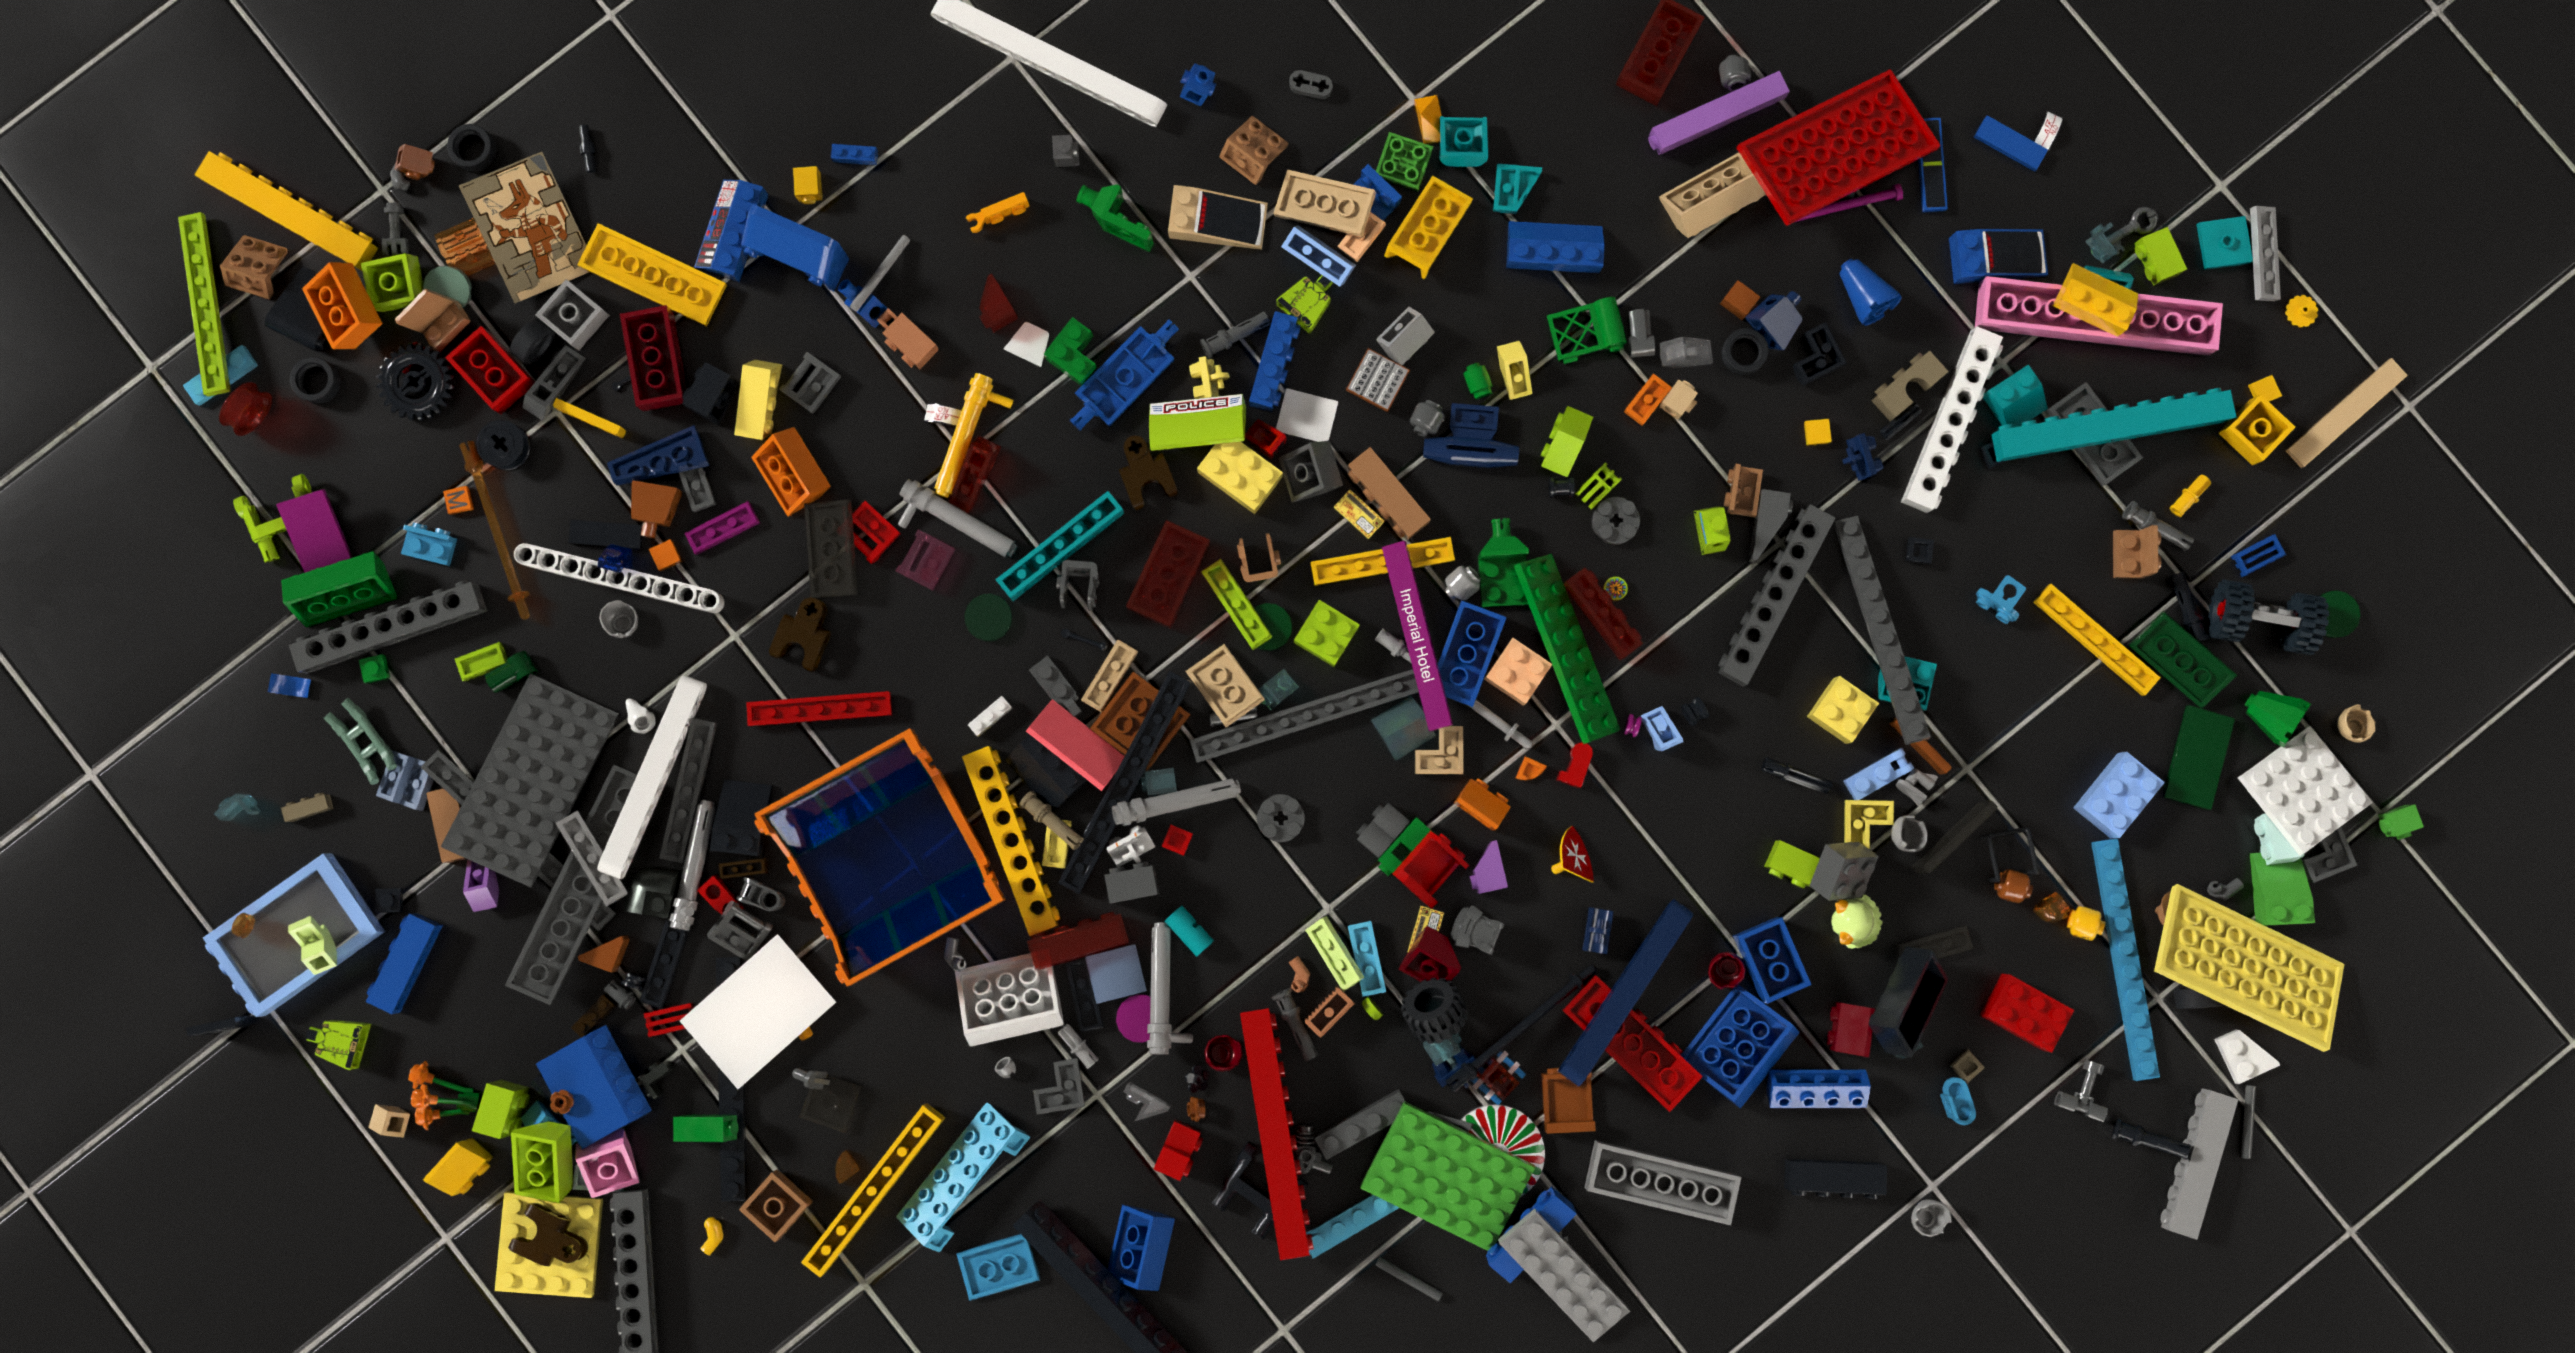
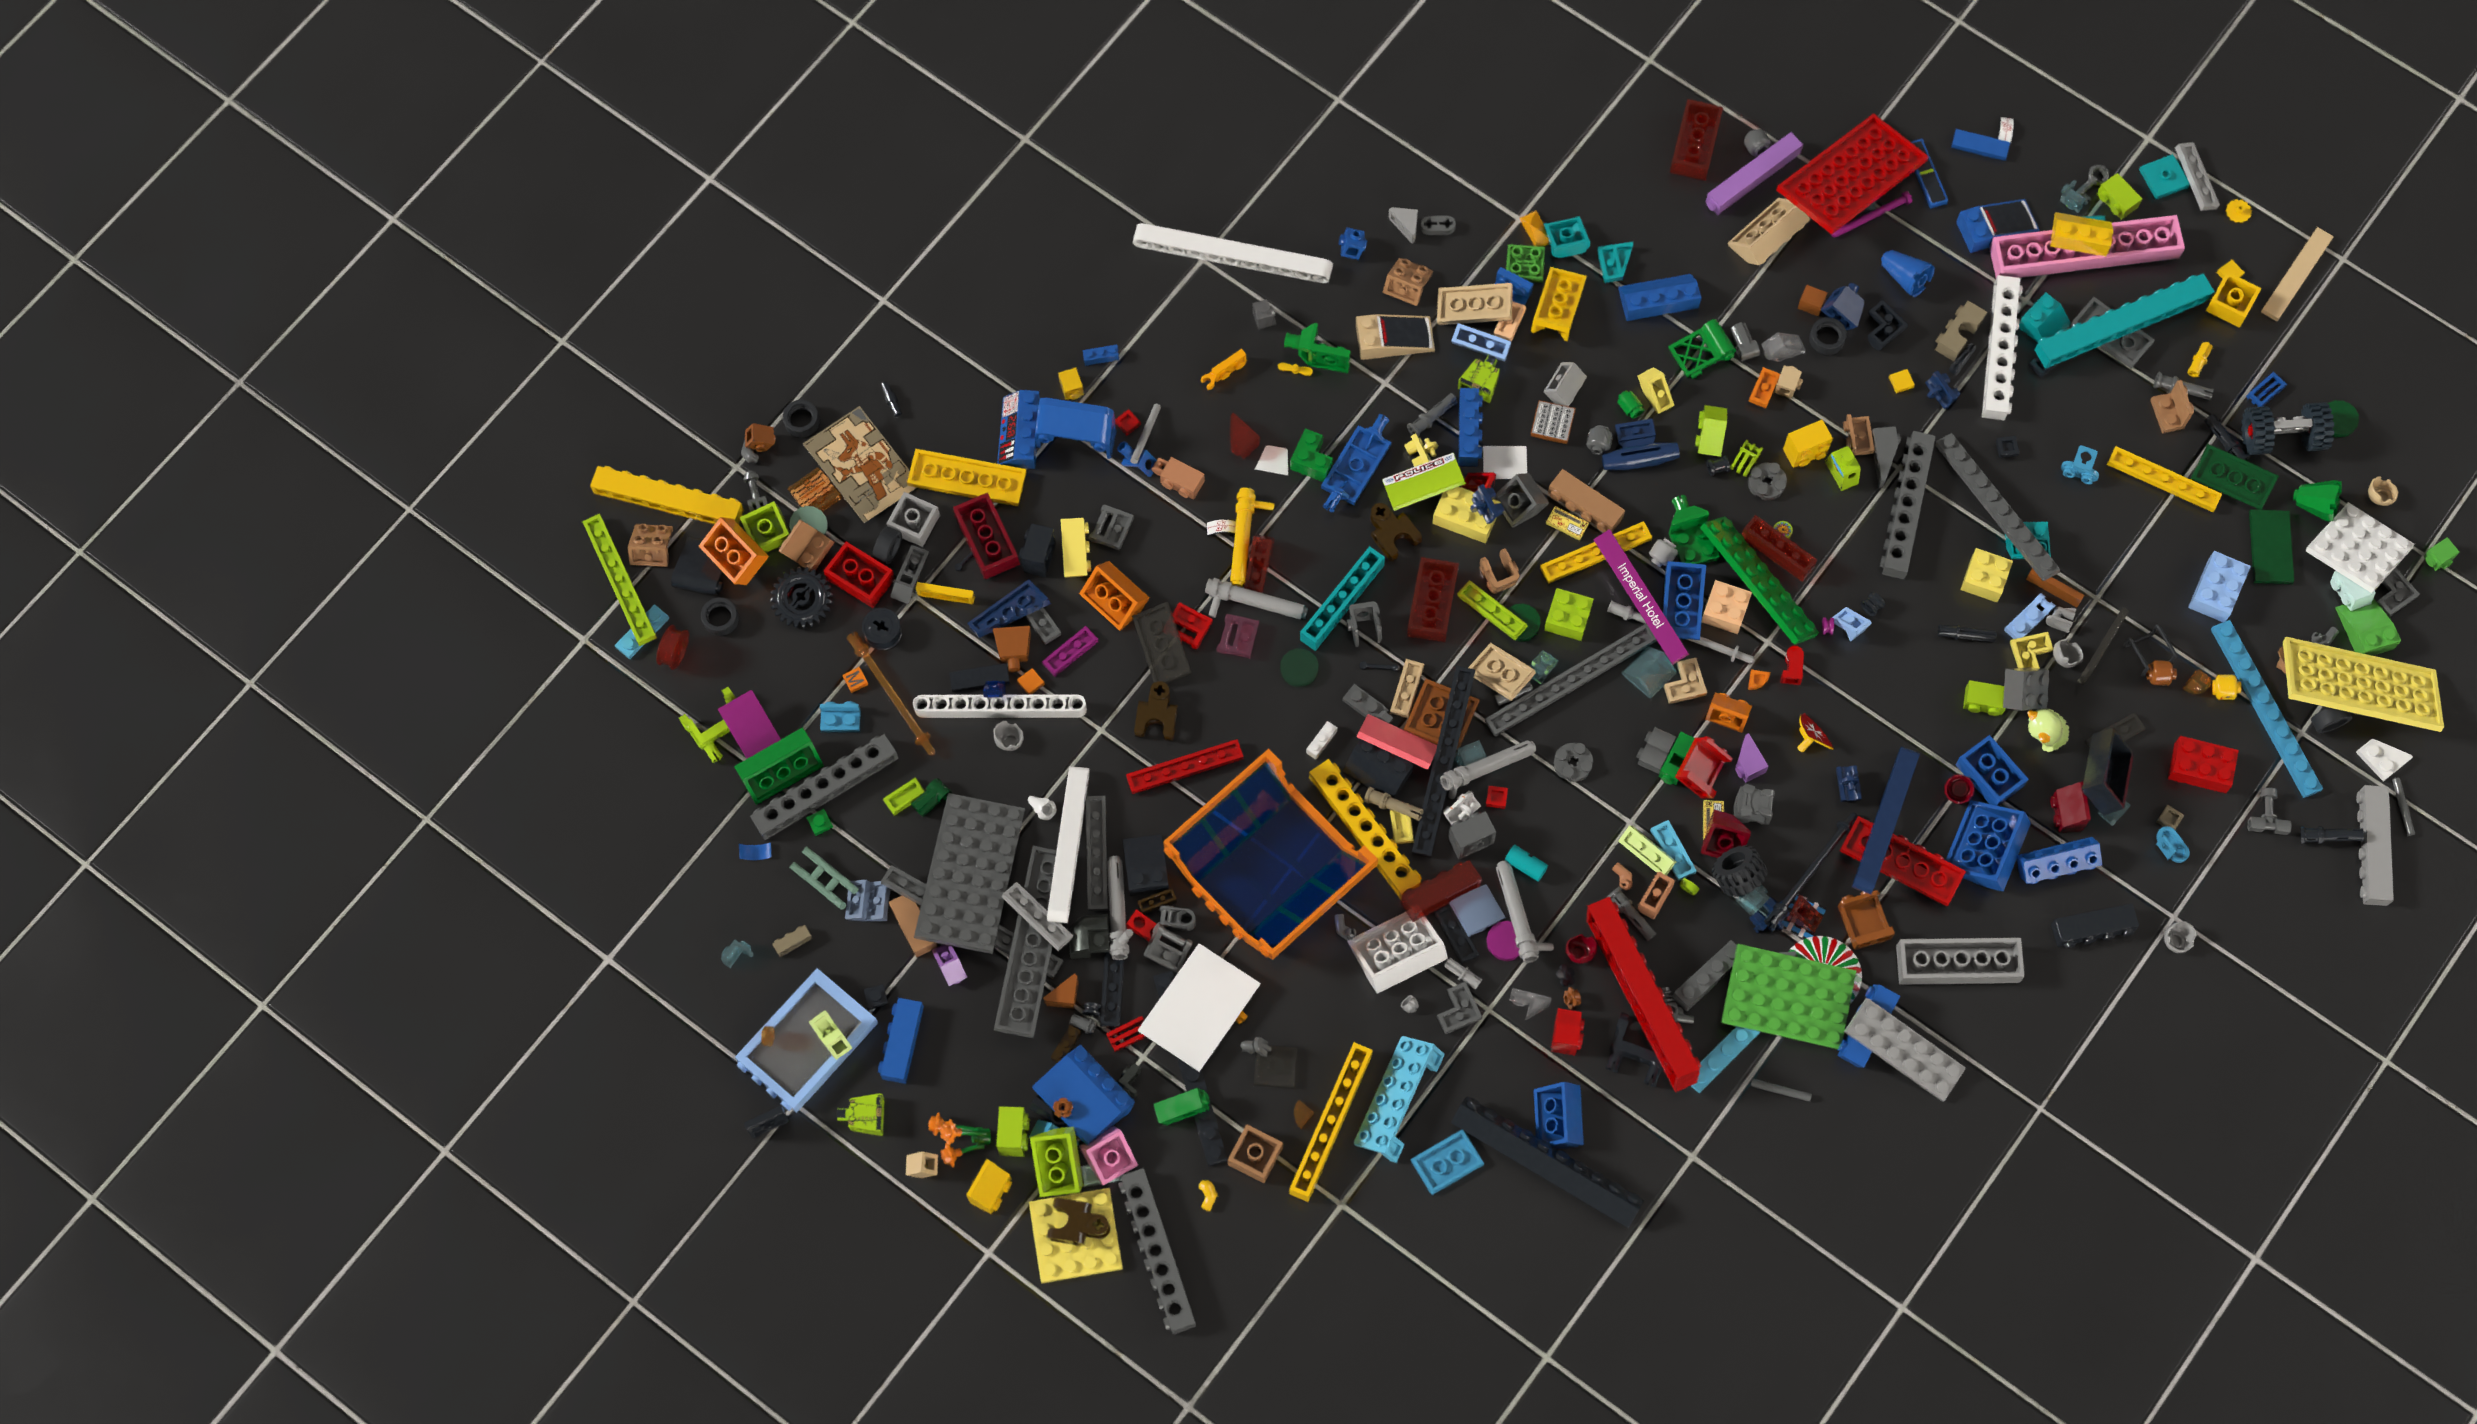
camera: 10 degrees left, 15 degrees down
(865, 250) = (1127, 422): none -> red tile
(1086, 231) = (1307, 371): none -> yellow piece
(1258, 476) = (1484, 505): none -> dark blue hips
(1272, 70) = (1405, 221): none -> light grey slope
(1677, 489) = (1807, 444): none -> yellow brick

